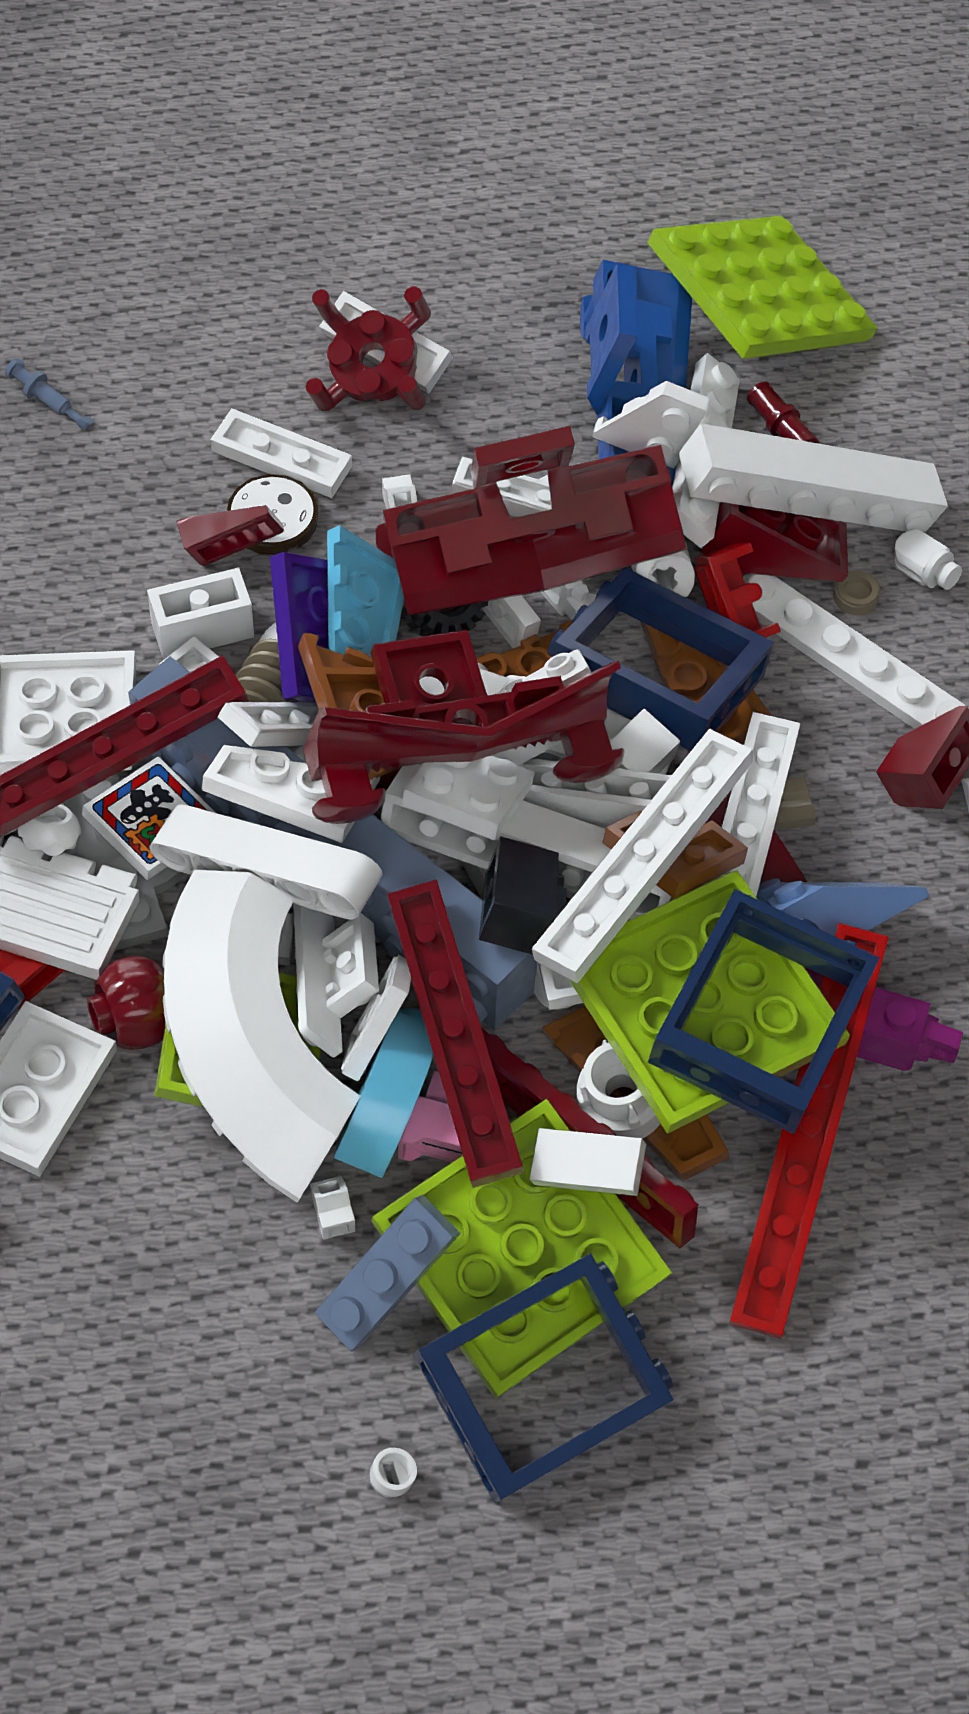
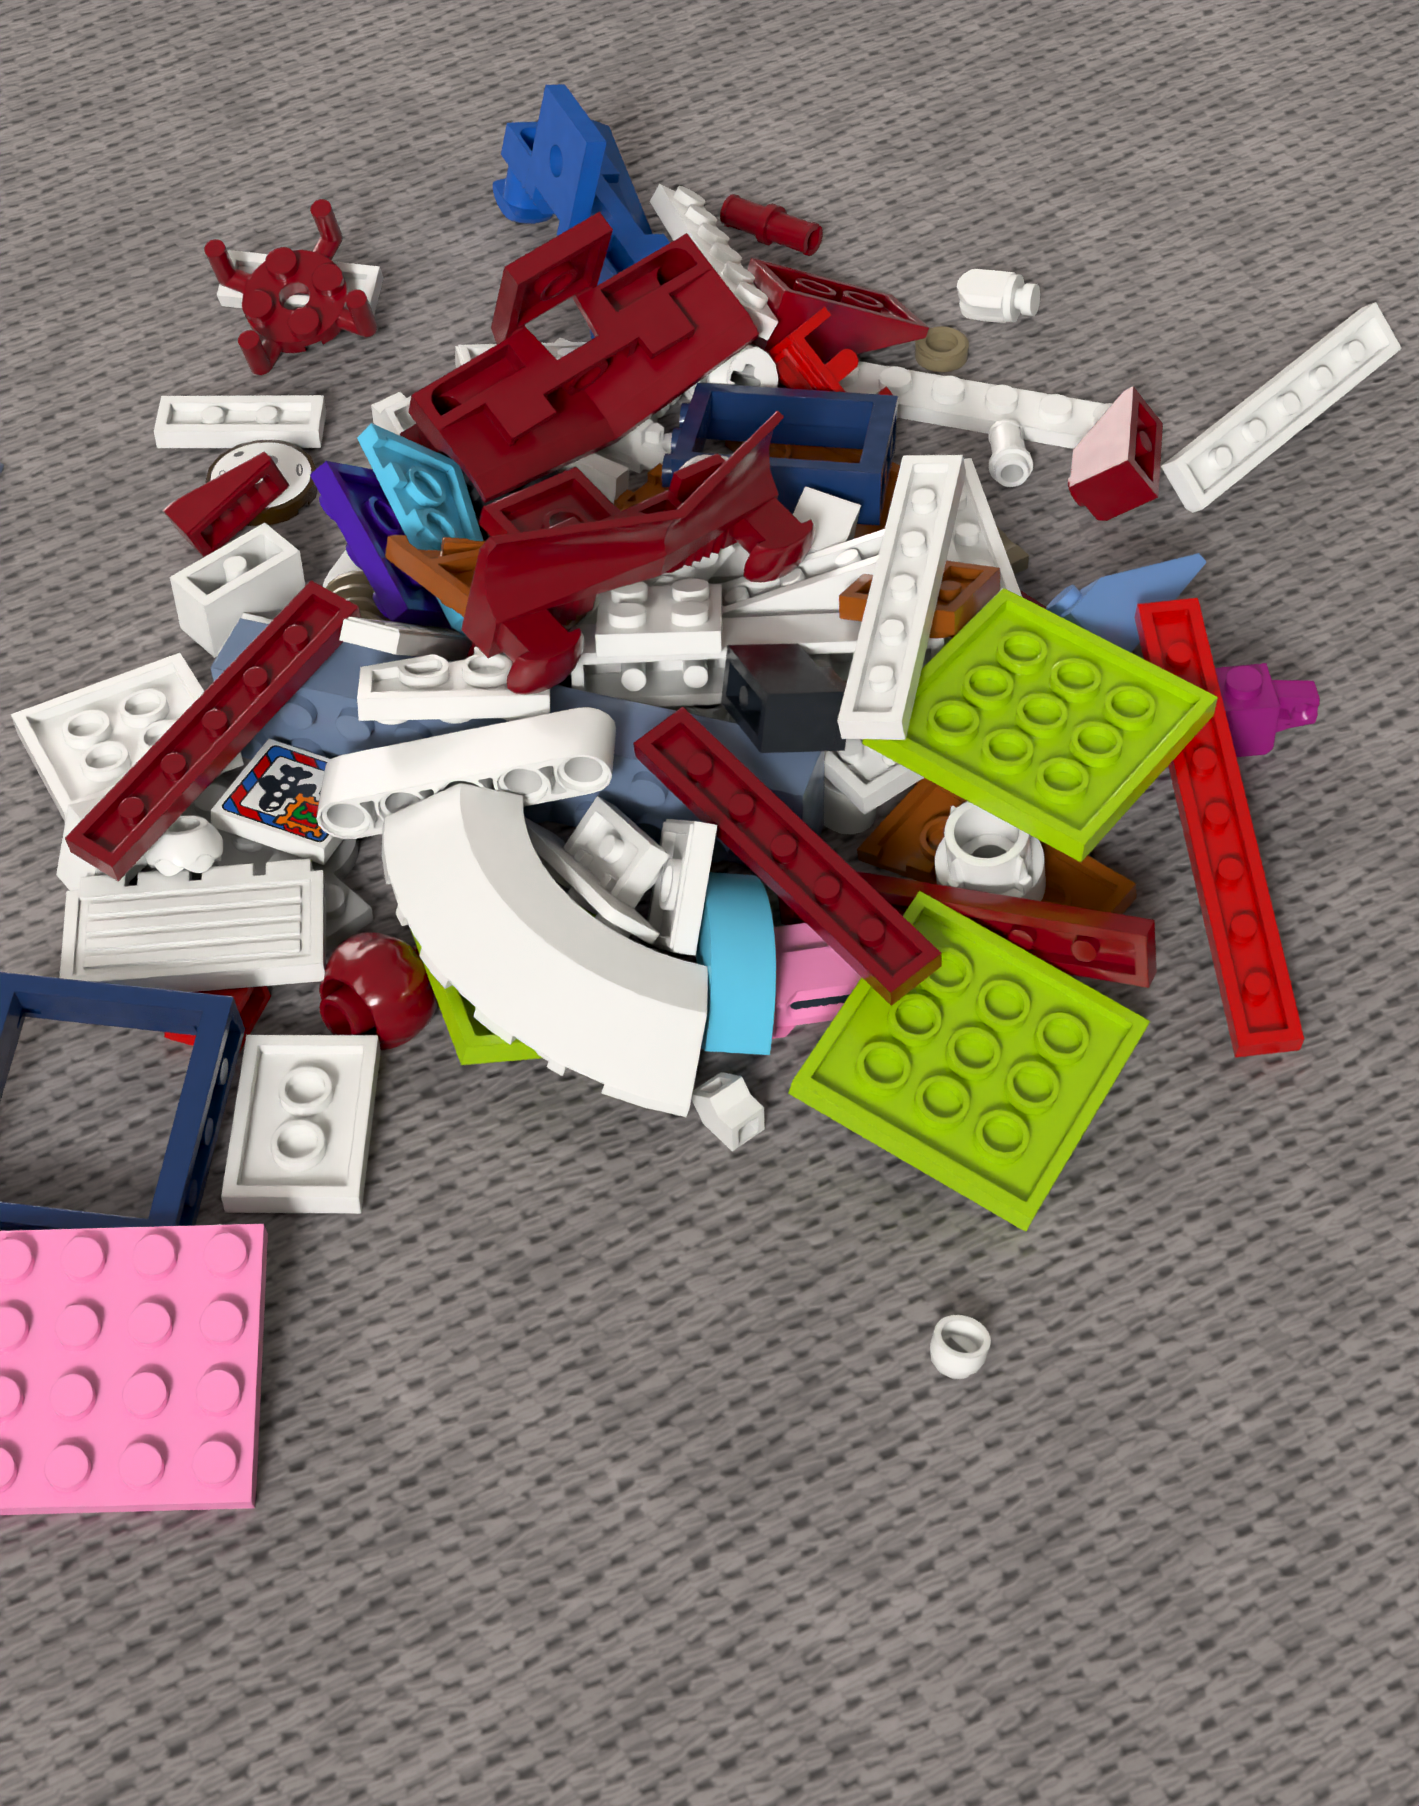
camera: 20 degrees left, 10 degrees down
(387, 1272) = (839, 1135): sand blue plate -> none
(467, 1421) = (1017, 1248): dark blue window -> none
(588, 1161) = (1006, 928): white tile -> none
(660, 418) = (668, 210): white wing -> none
(729, 1075) = (1124, 765): dark blue window -> none
(762, 286) = (687, 109): lime plate -> none
(811, 479) = (843, 242): white brick -> none
(853, 715) = (1009, 460): none -> white pin

